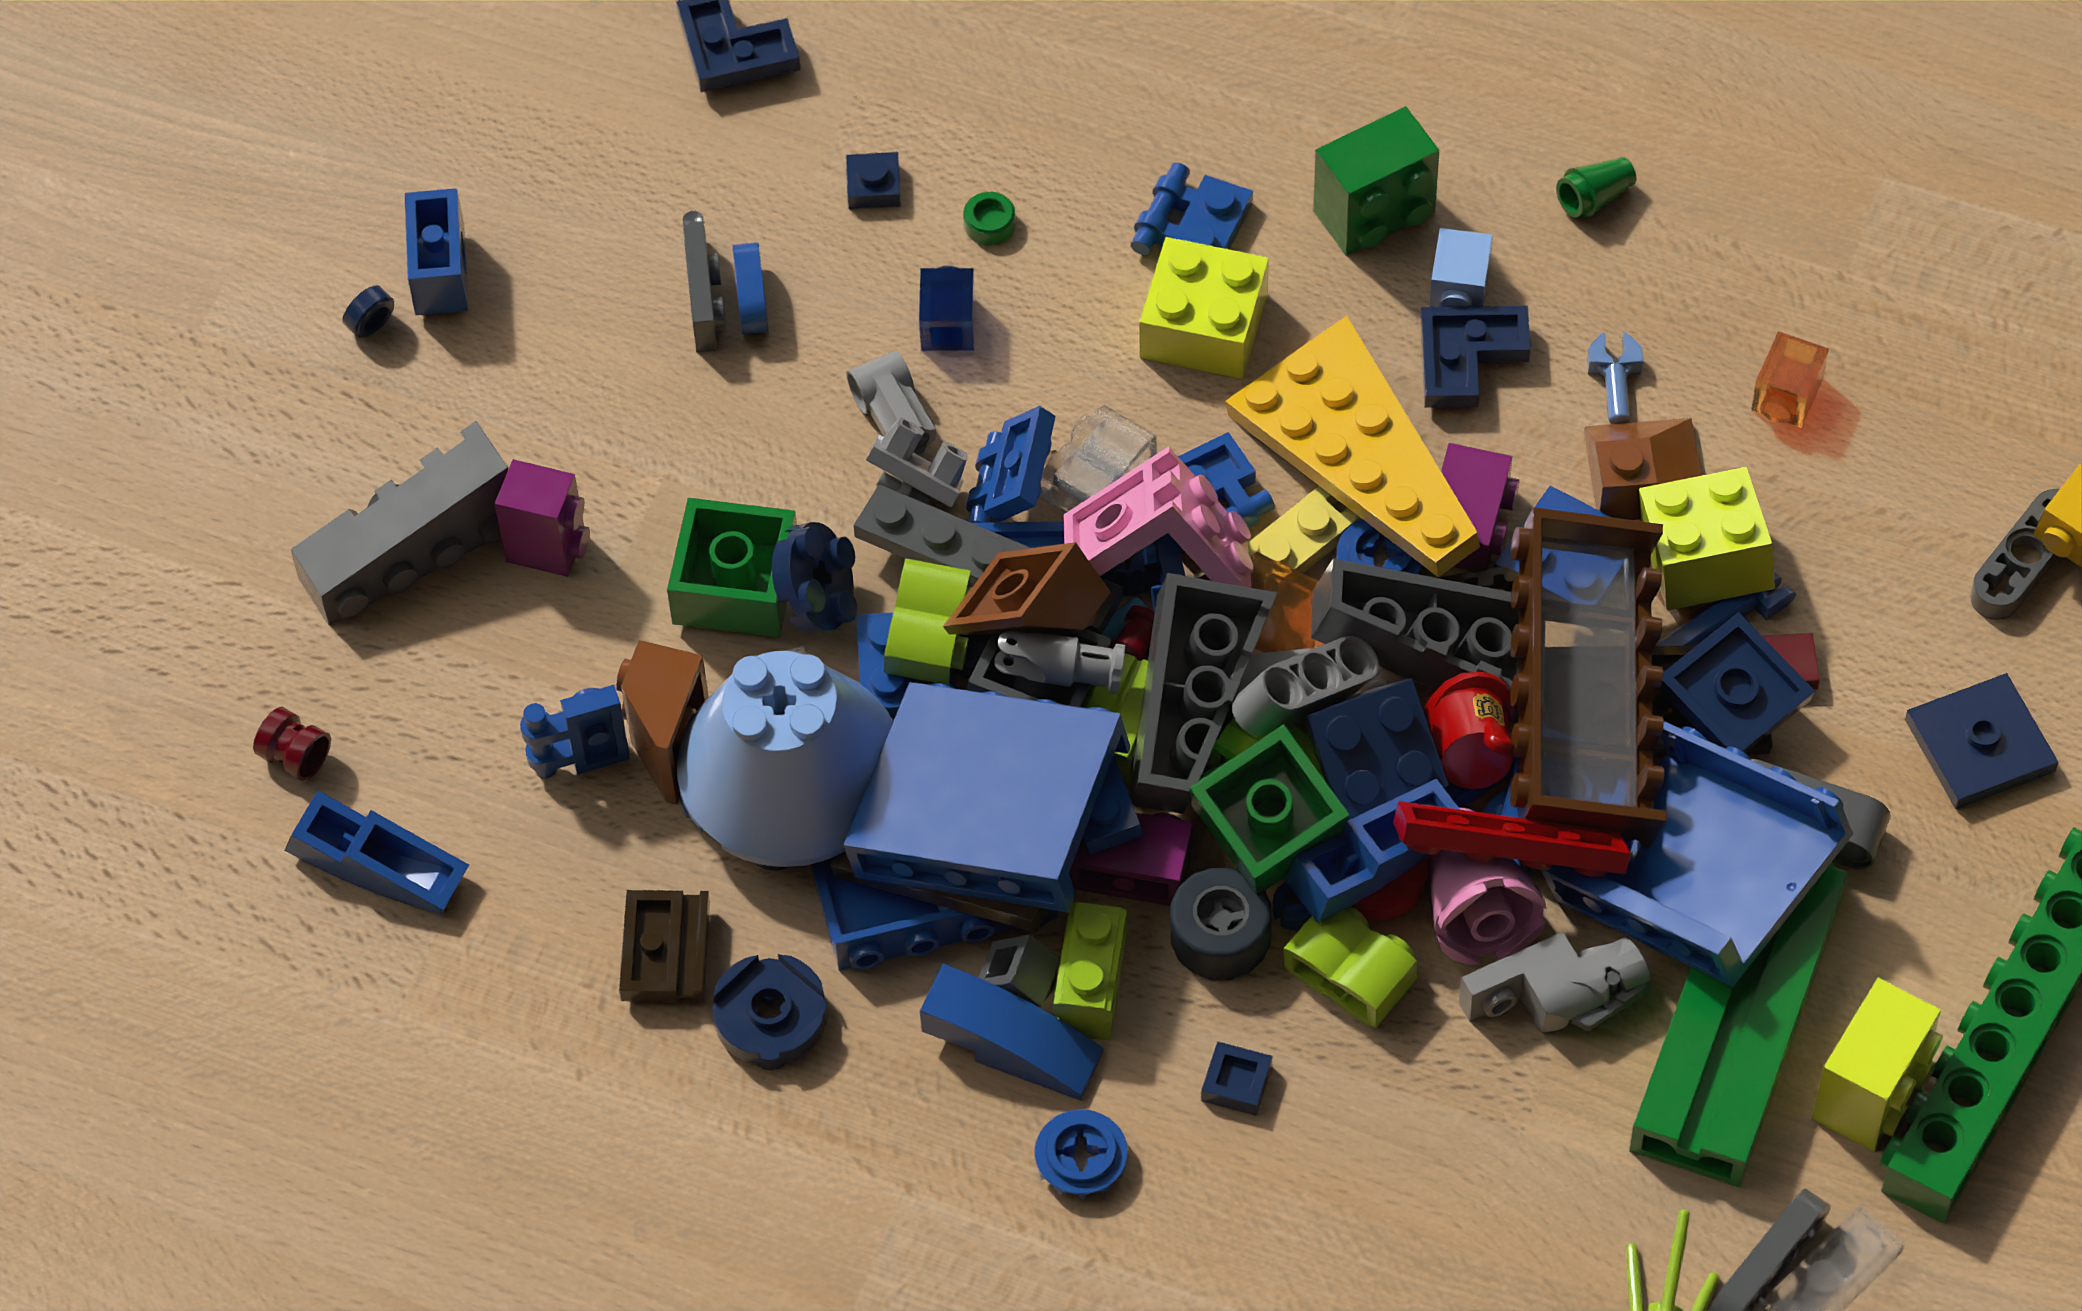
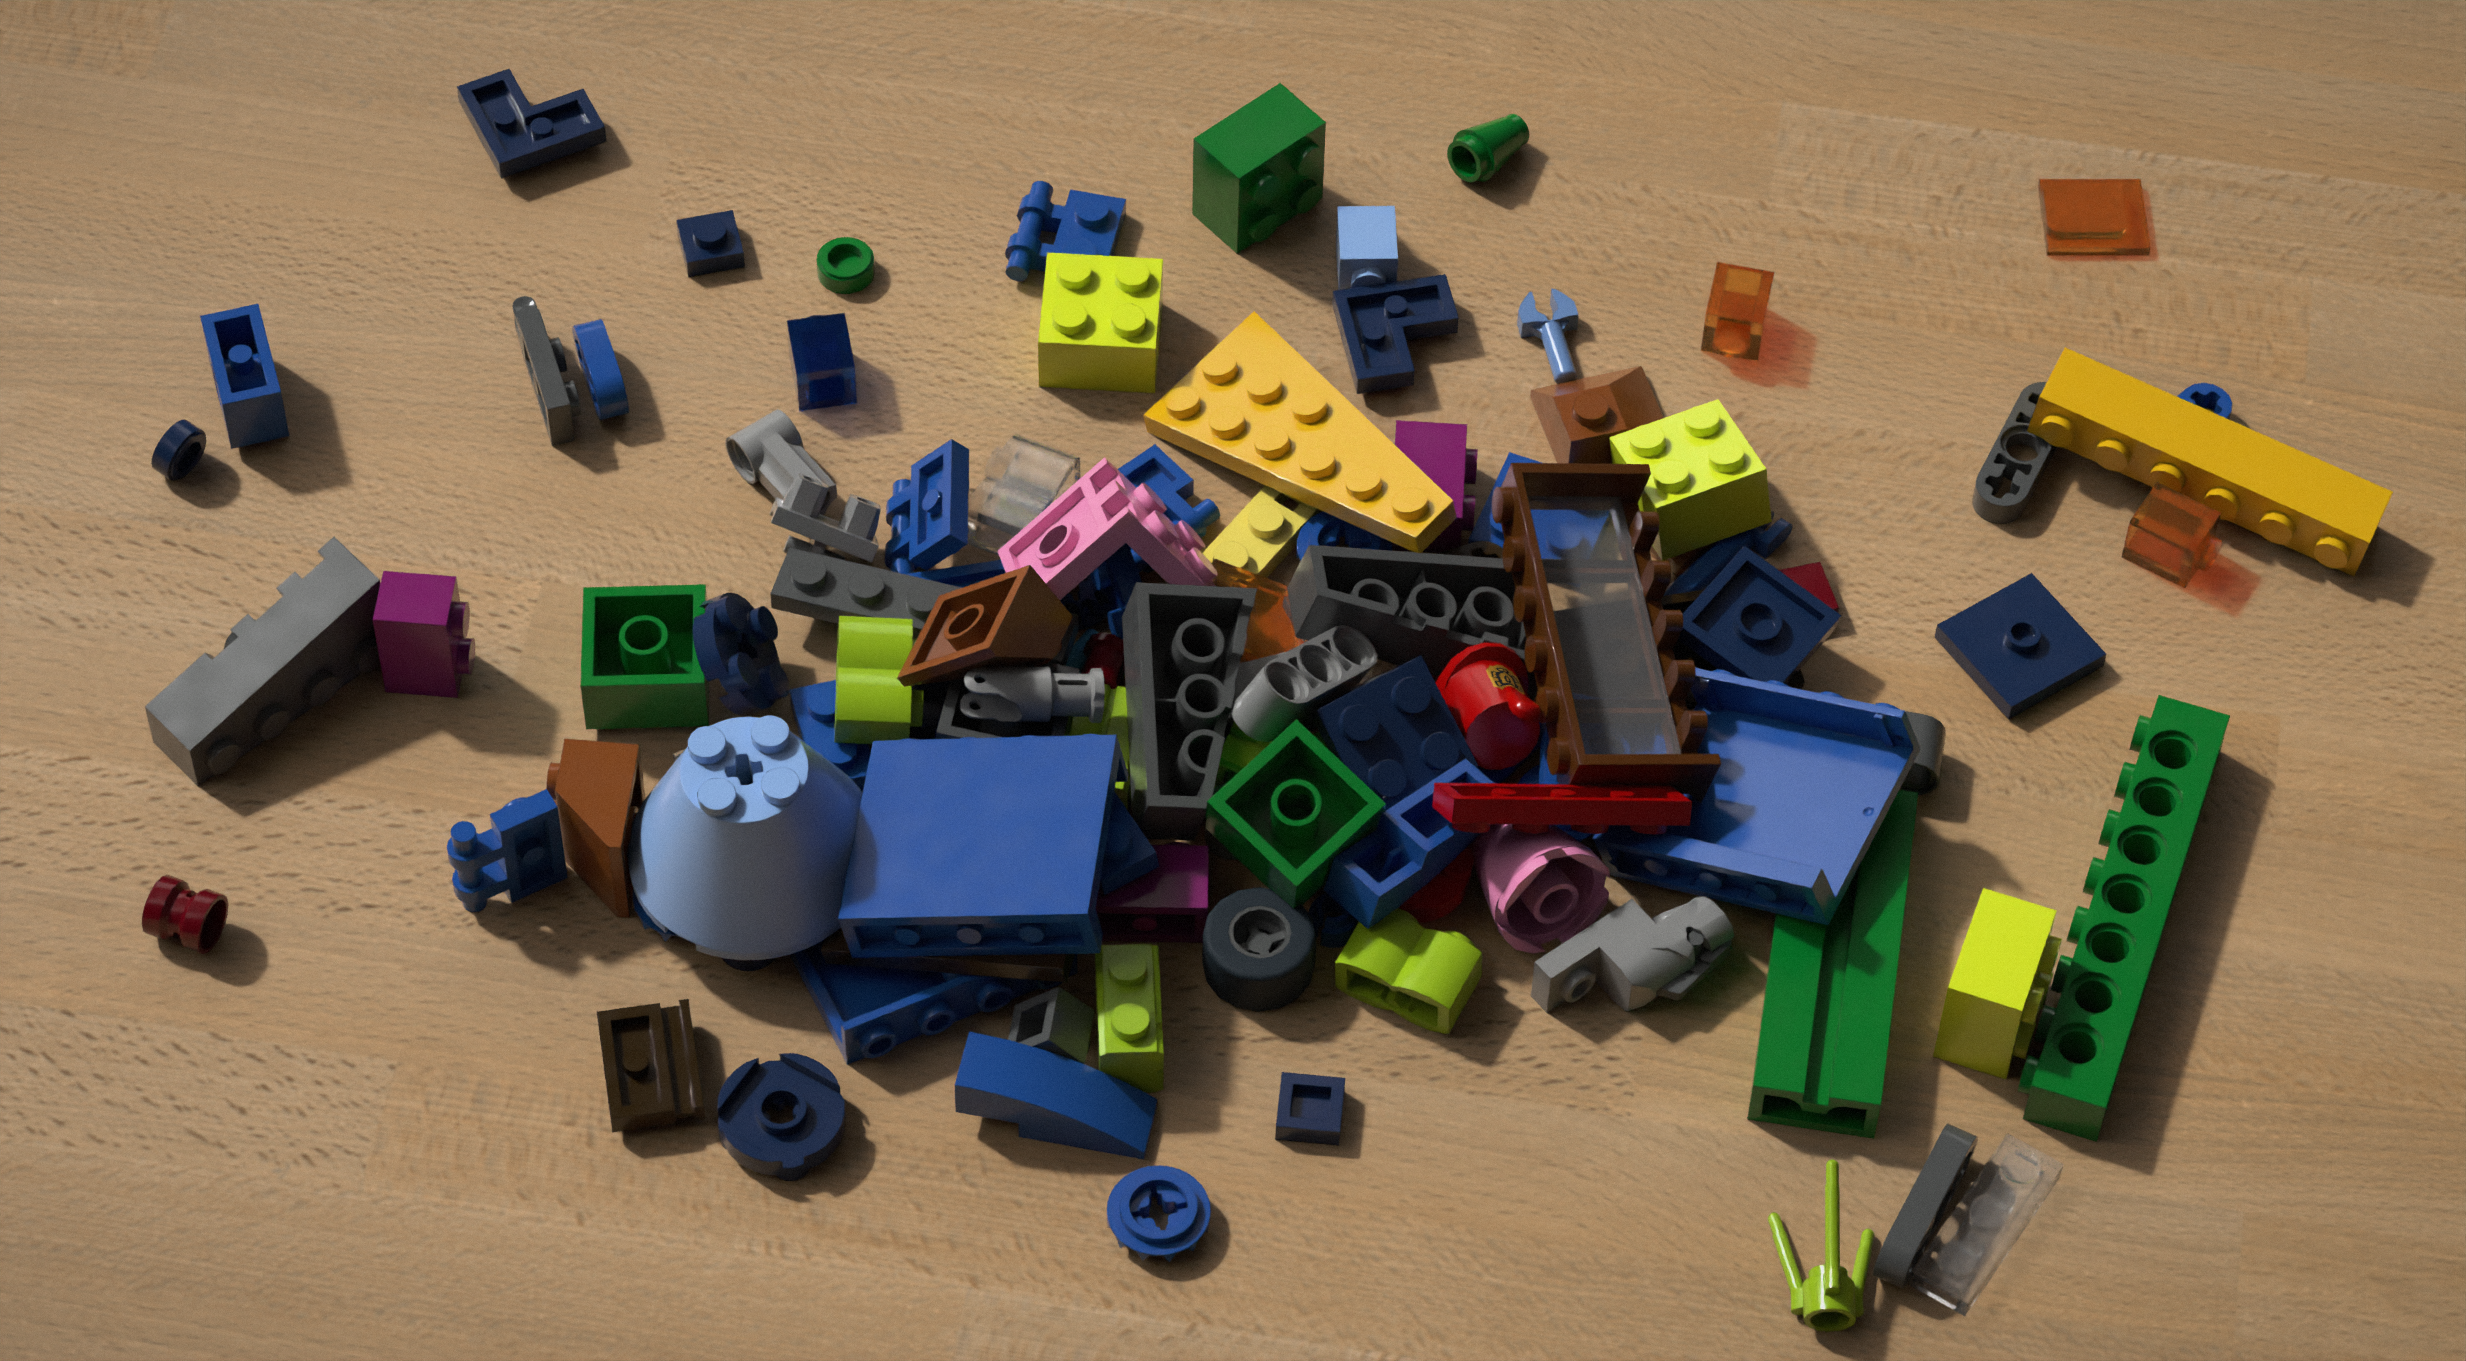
camera: 15 degrees left, 5 degrees down
(375, 854) = (303, 1018): blue slope -> none

